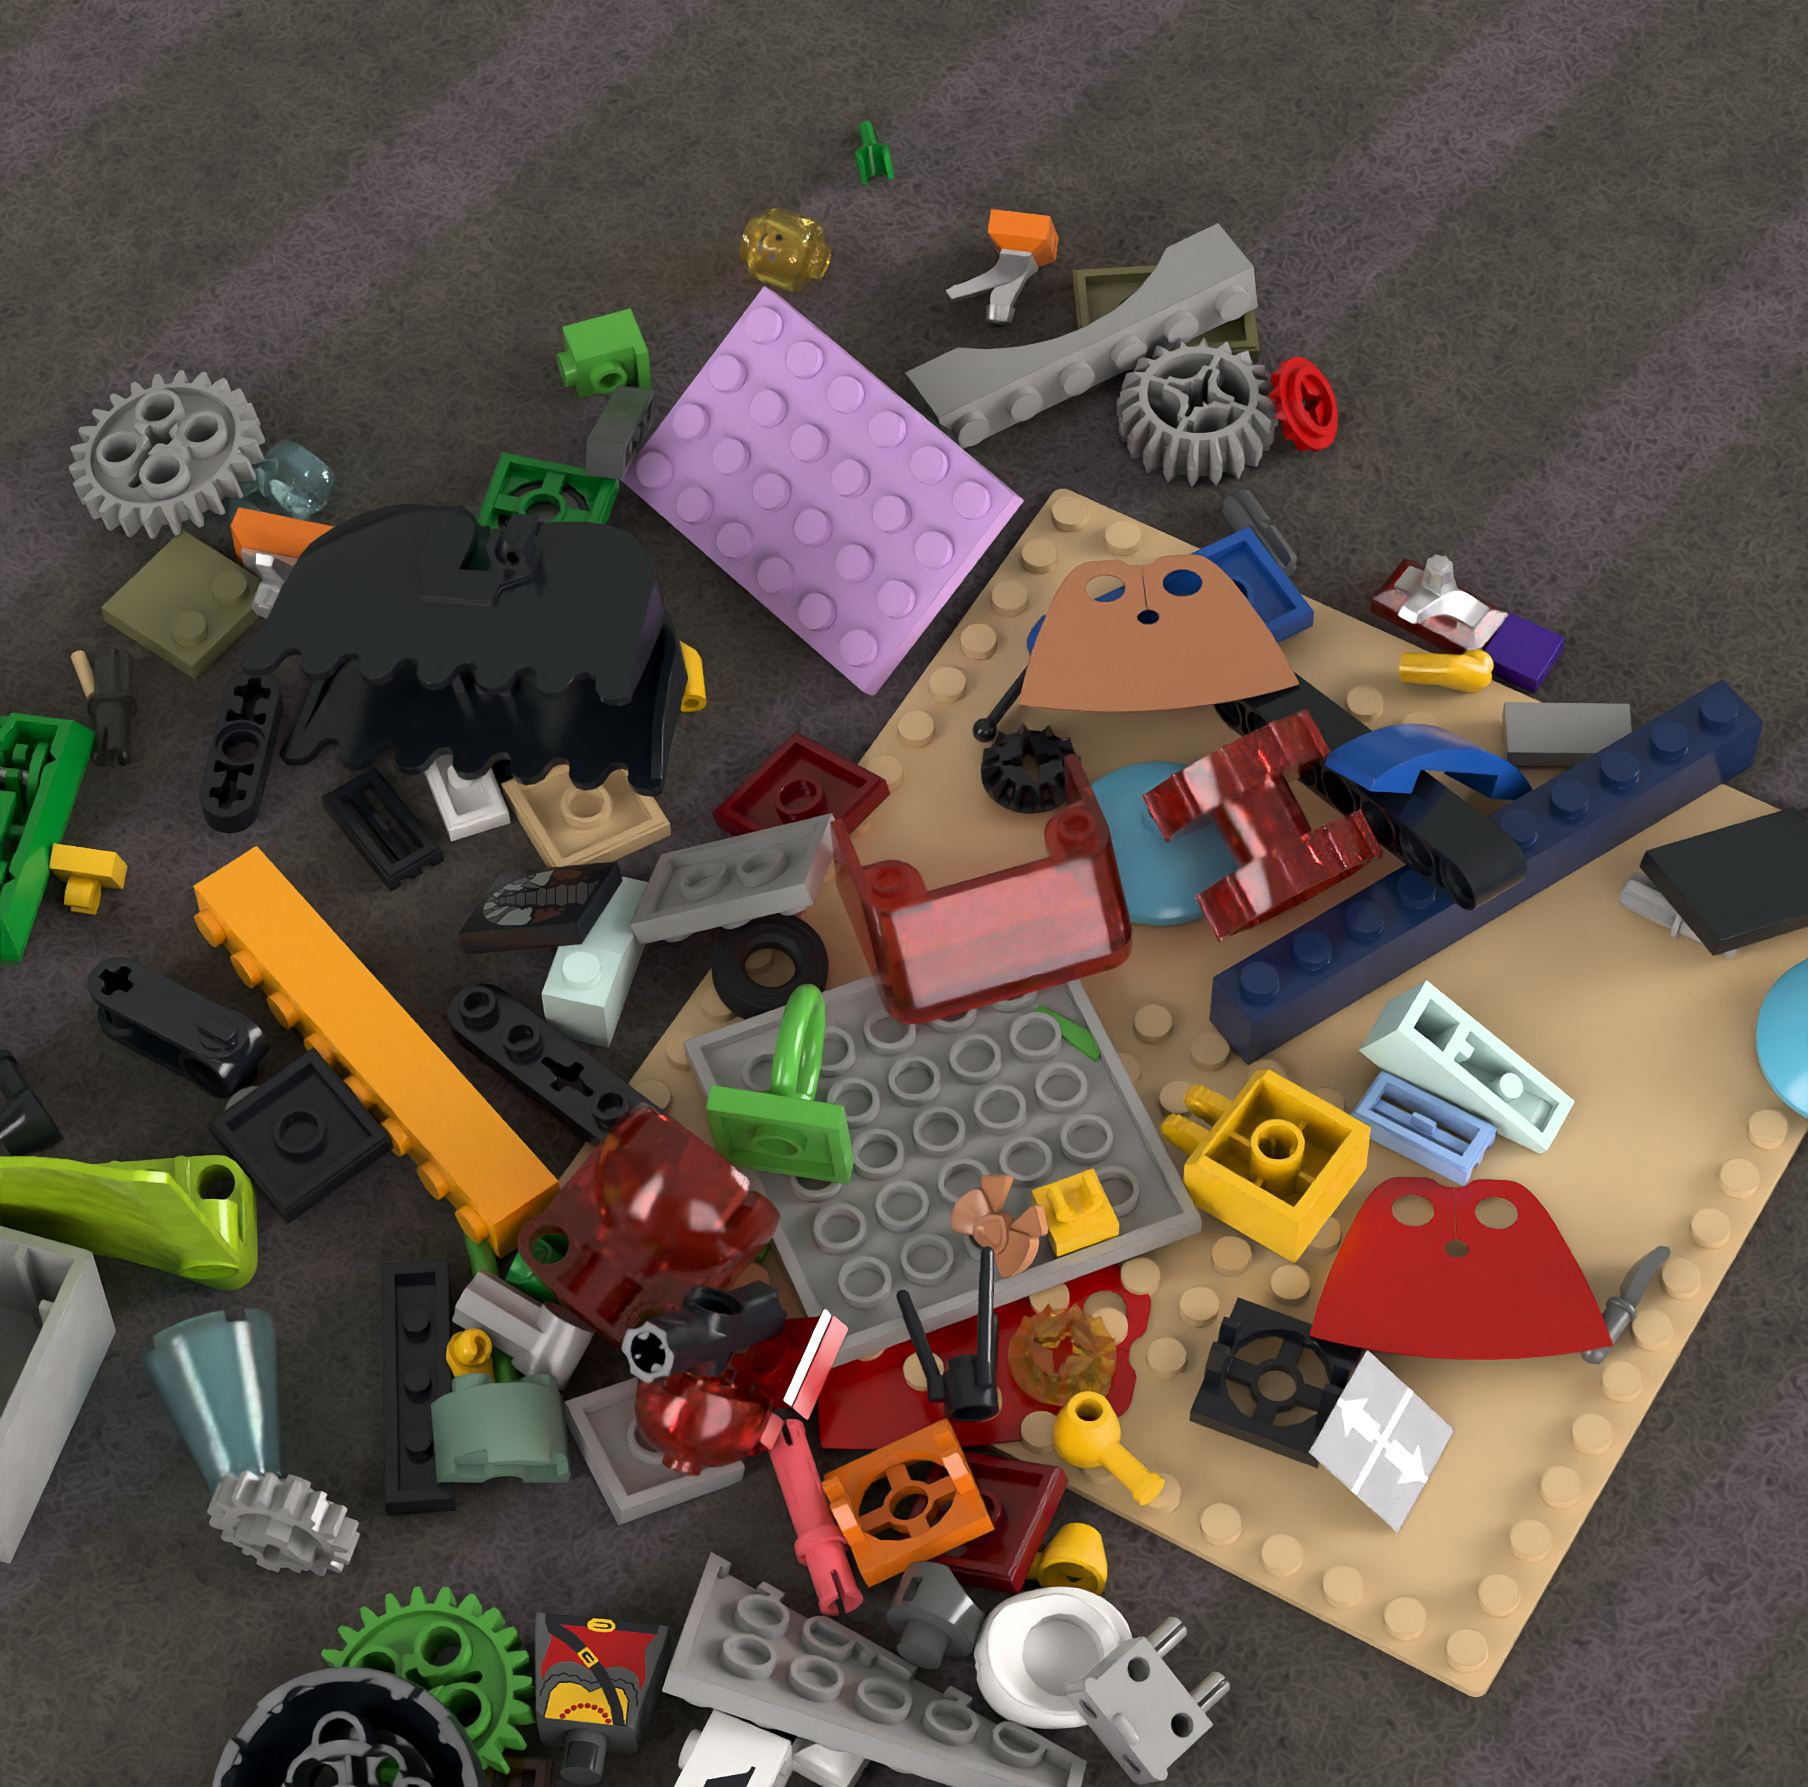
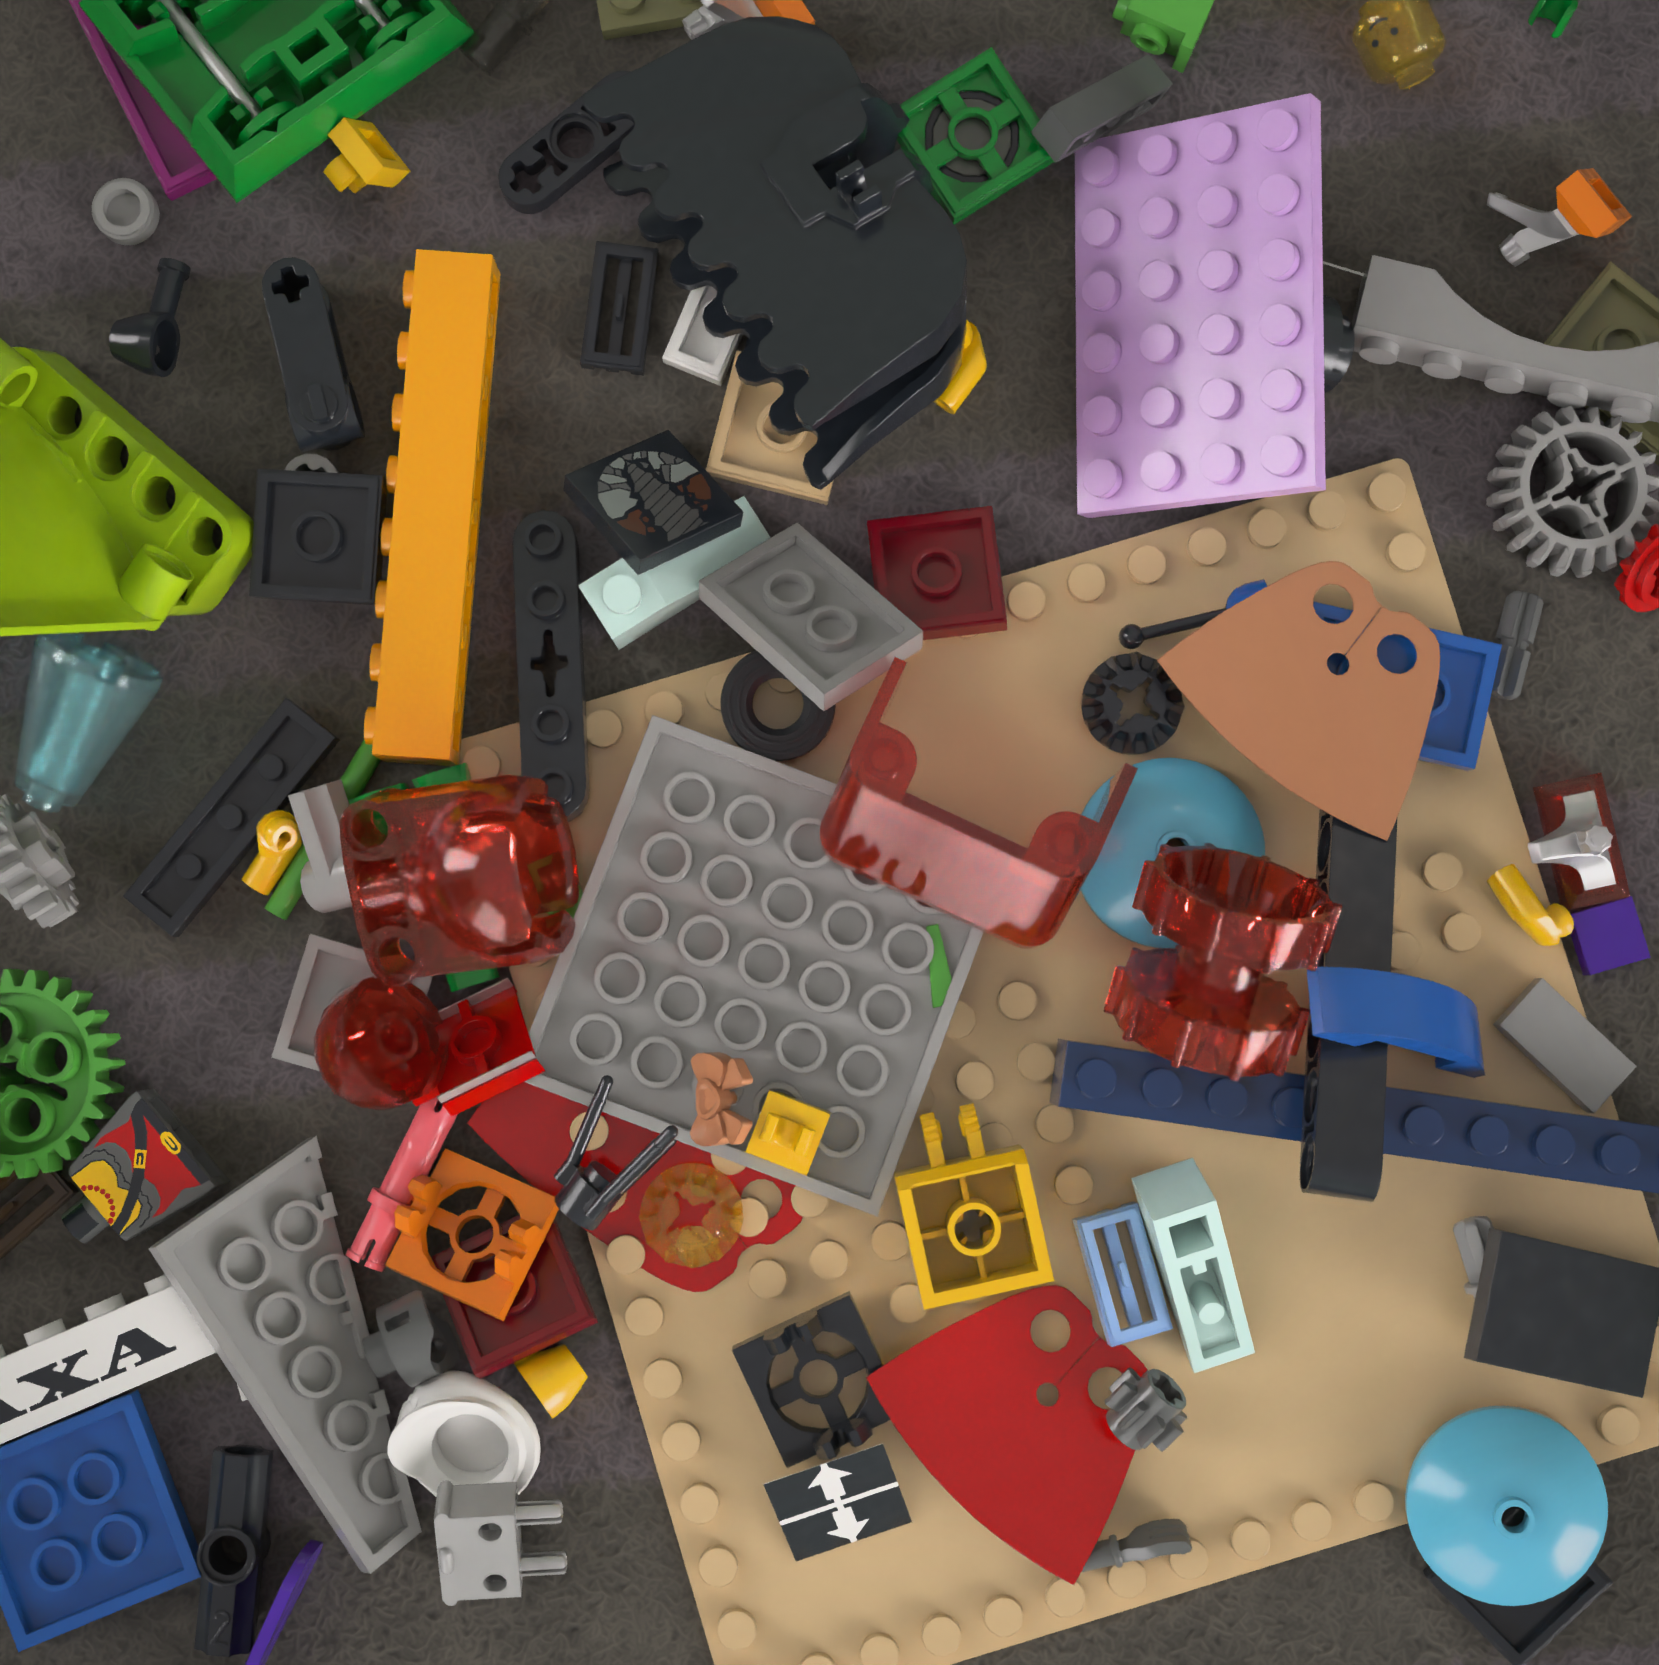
camera: 40 degrees right, 30 degrees up
(501, 1430) = (240, 923): sand green cylinder -> none
(703, 1331) = (381, 1014): black piece -> none
(783, 1125) = (629, 880): bright green tile -> none
(1098, 1444) = (648, 1320): yellow bar -> none
(1533, 1181) = (1146, 1409): none -> dark grey gear

